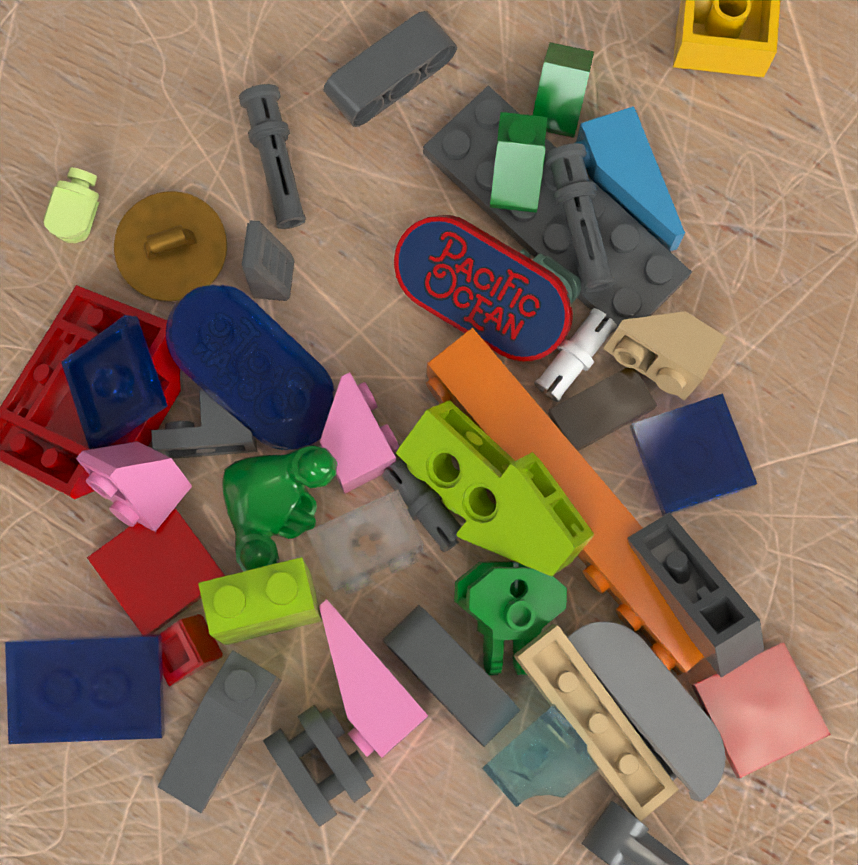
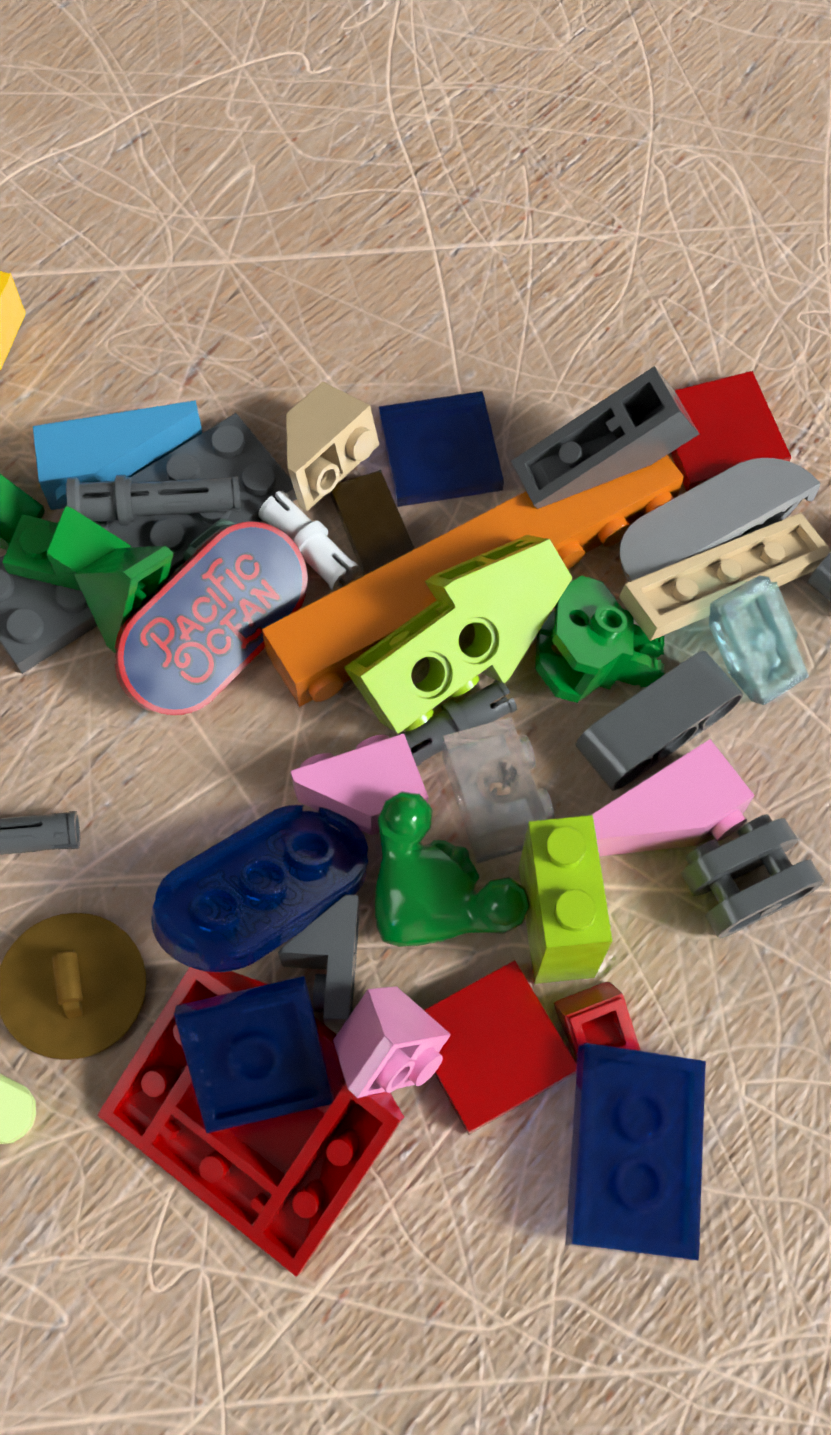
camera: 80 degrees left, 10 degrees down
(218, 730) = (701, 986): dark grey slope -> none
(266, 264) = (128, 860): dark grey slope -> none
(494, 207) = (121, 584): none -> green slope

